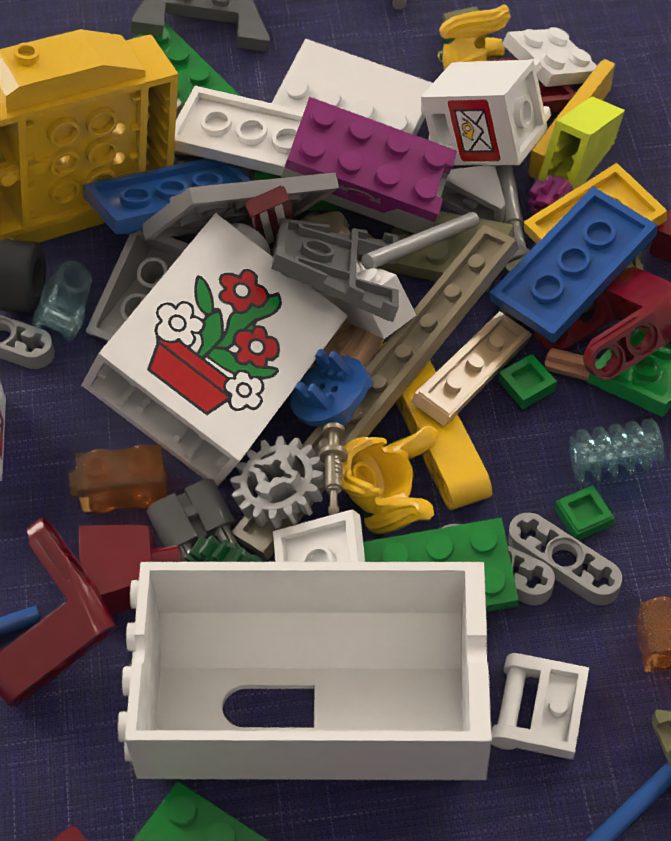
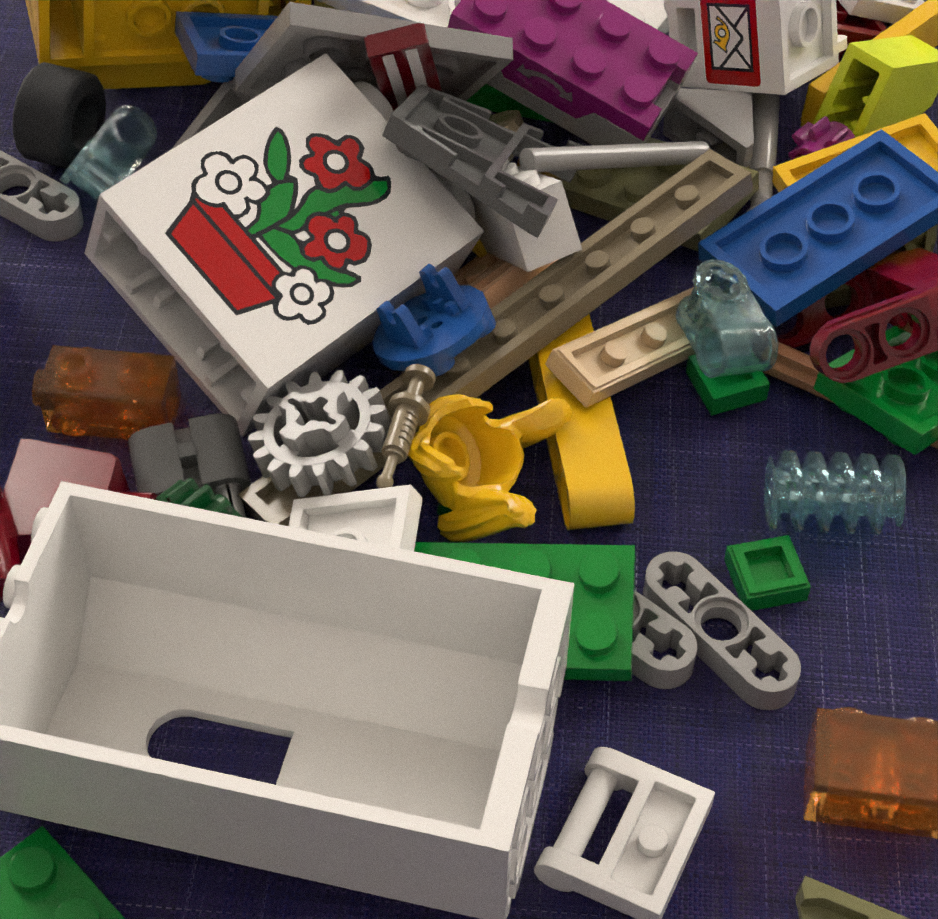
camera: 10 degrees right, 5 degrees down
(521, 351) = (726, 323): none -> clear light blue piece

